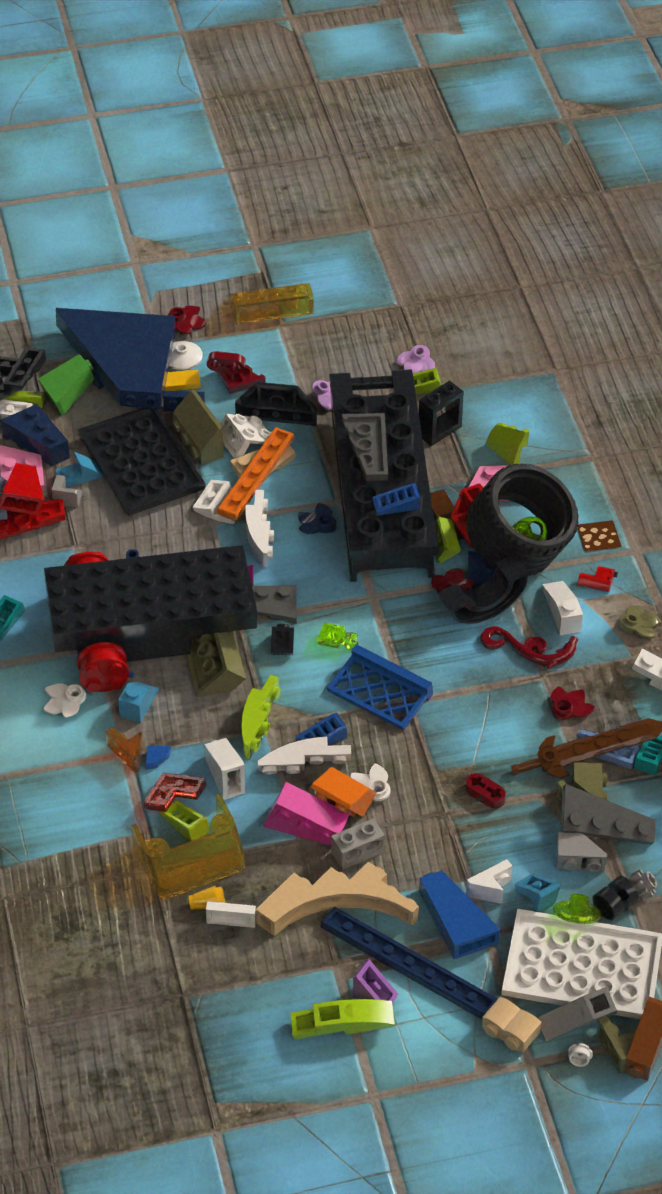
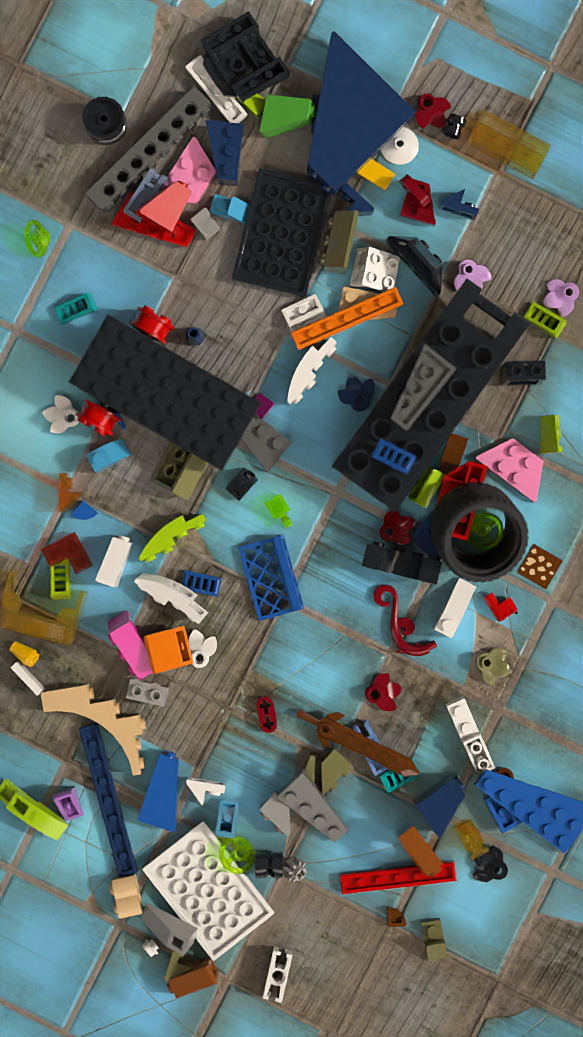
camera: 45 degrees right, 40 degrees up
(215, 315) = (454, 126): none -> black wheel
(271, 358) = (453, 205): none -> dark blue slope

